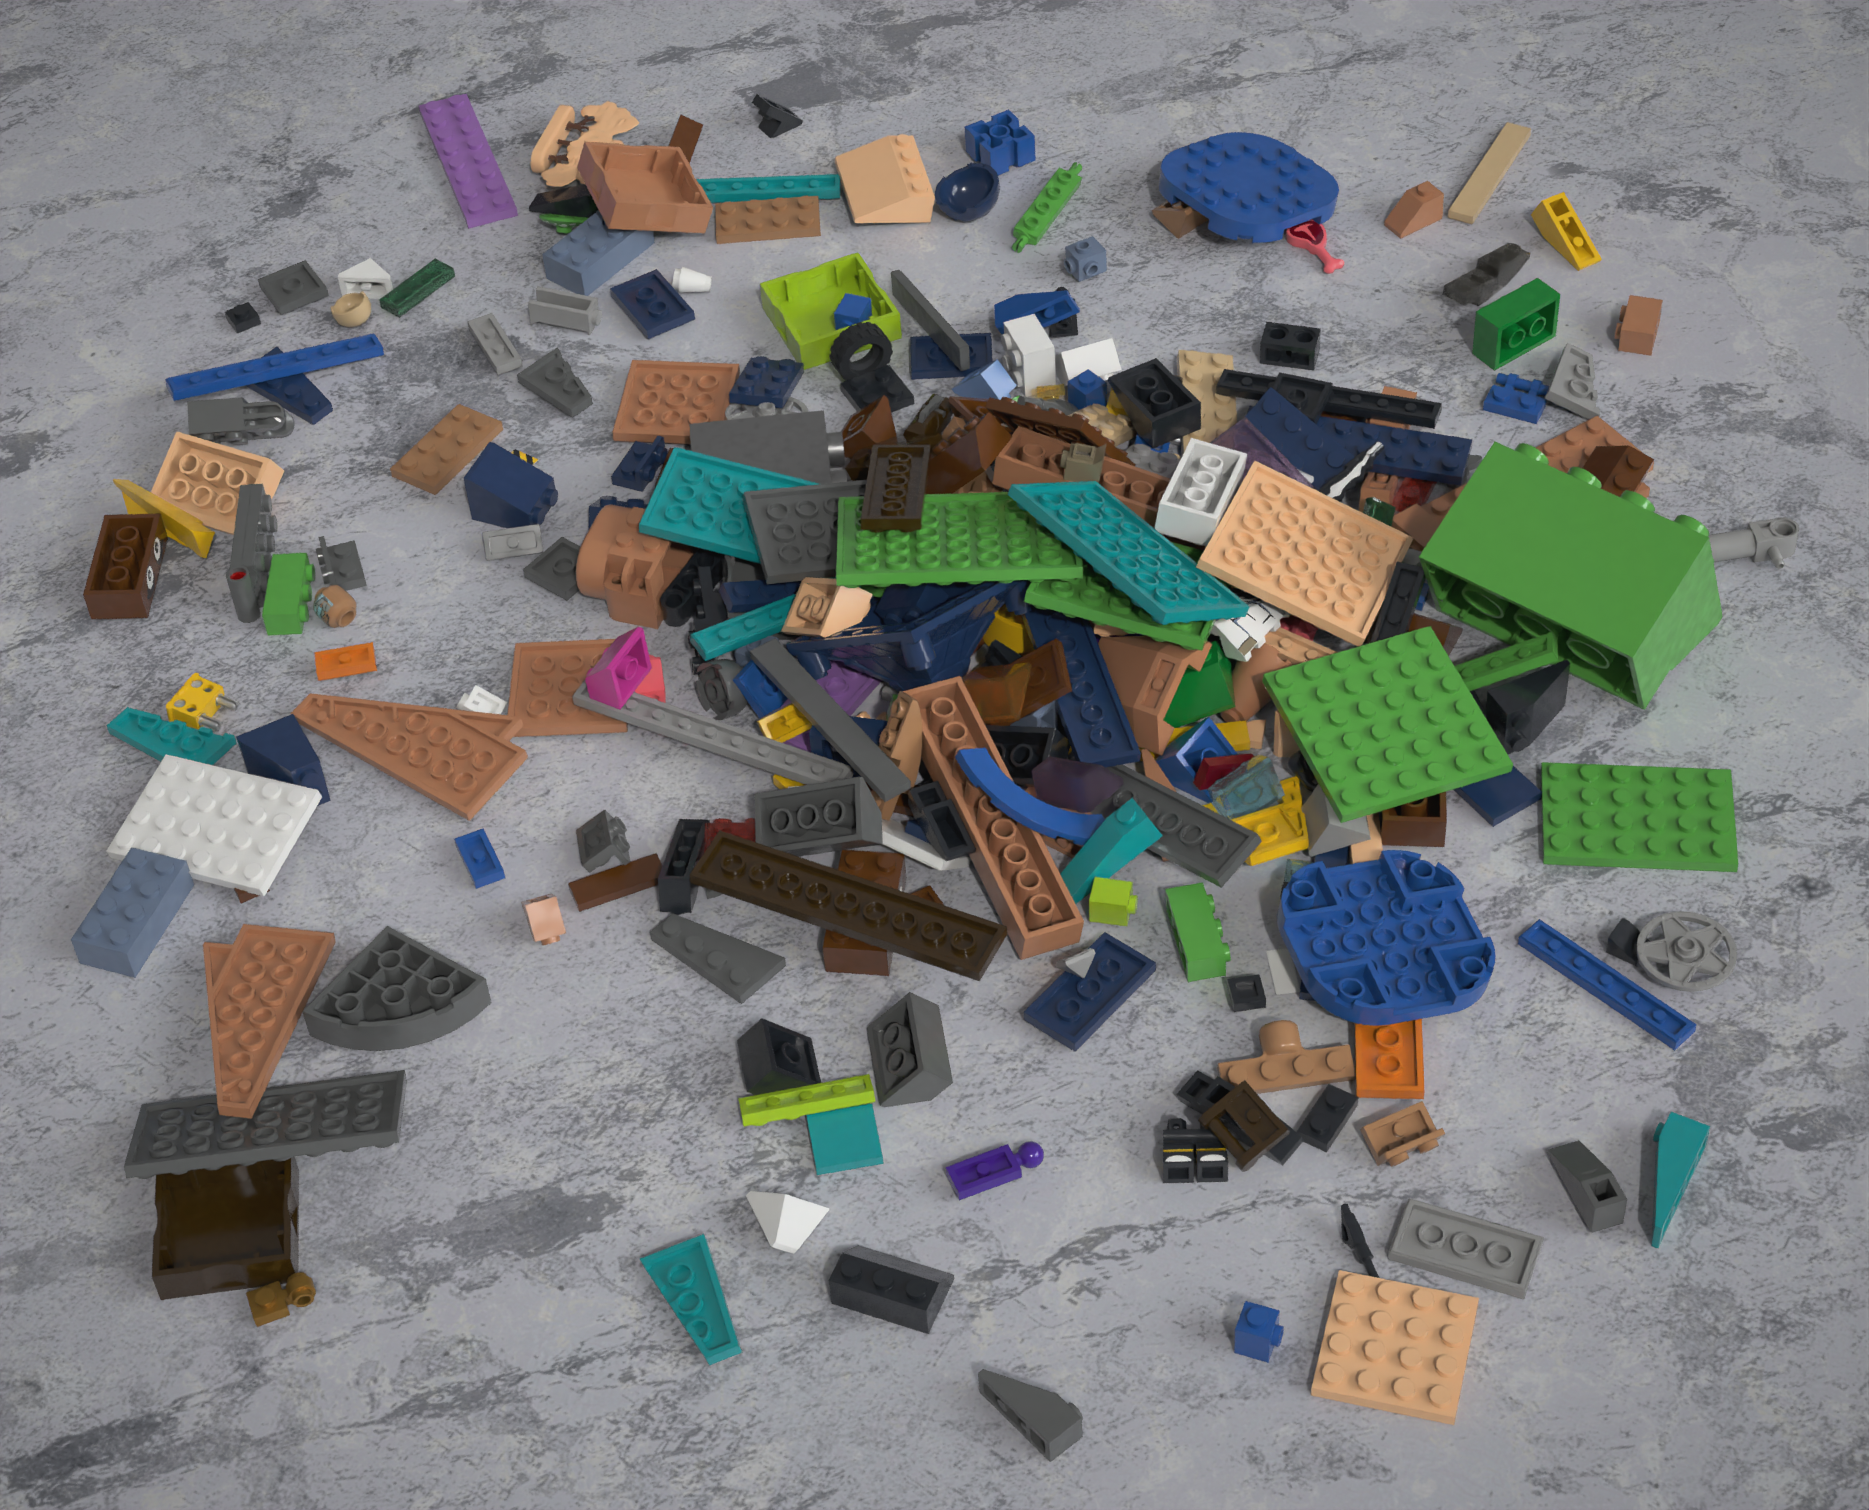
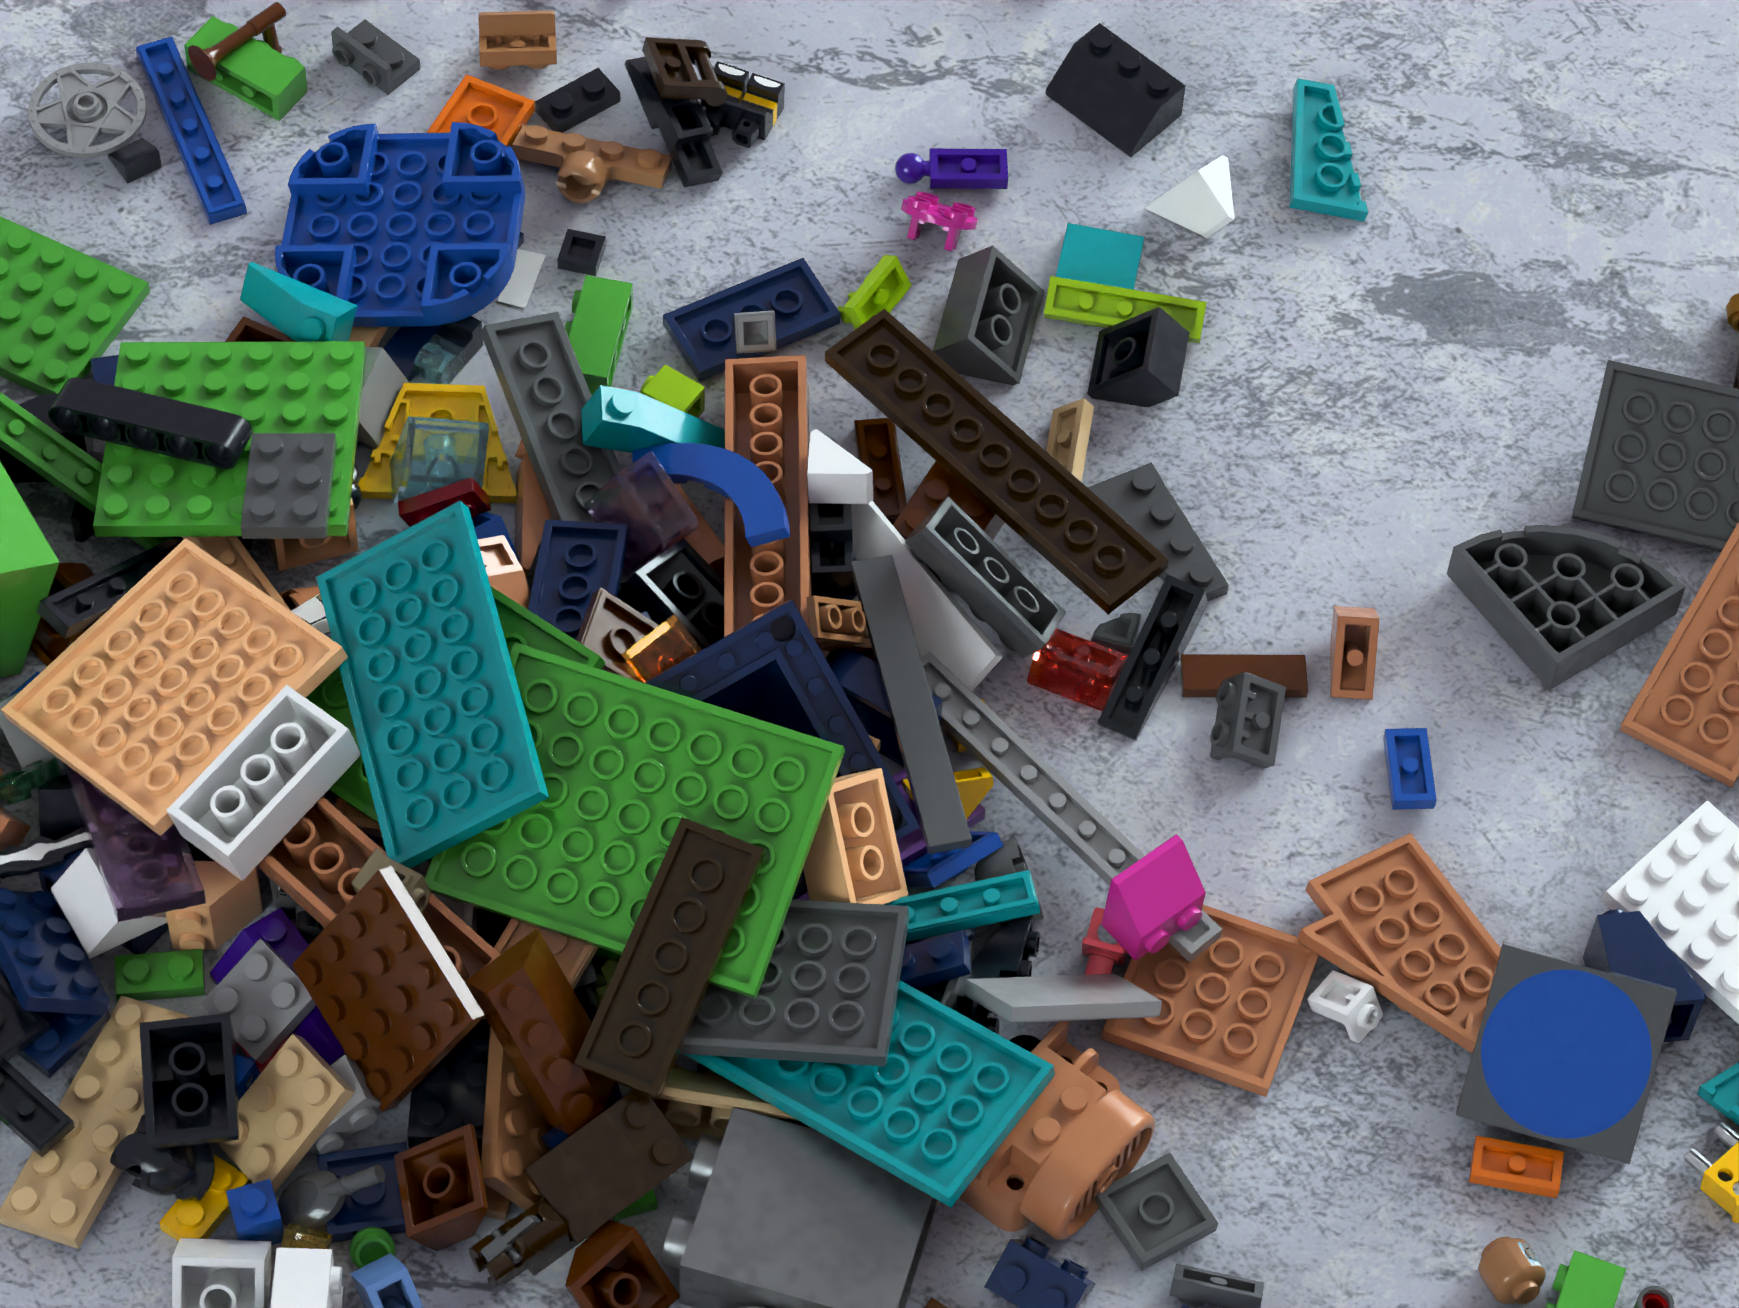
camera: 165 degrees left, 10 degrees up
(323, 692) = (1566, 1052): none -> blue tile
(659, 596) = (1062, 998): none -> light grey tile
(805, 974) = (1070, 435): none -> tan plate
(952, 831) = (836, 474): none -> white slope
(969, 1113) = (925, 208): none -> dark pink plate
(1004, 1037) = (879, 291): none -> lime plate
(1315, 675) = (289, 486): none -> dark grey plate
(1400, 833) = (296, 307): none -> teal slope
(1437, 683) = (150, 423): none -> black beam
(1510, 1087) = (374, 56): none -> dark grey bracket
(1597, 1034) = (253, 71): none -> bright green brick
(1620, 997) = (207, 59): none -> reddish brown piece

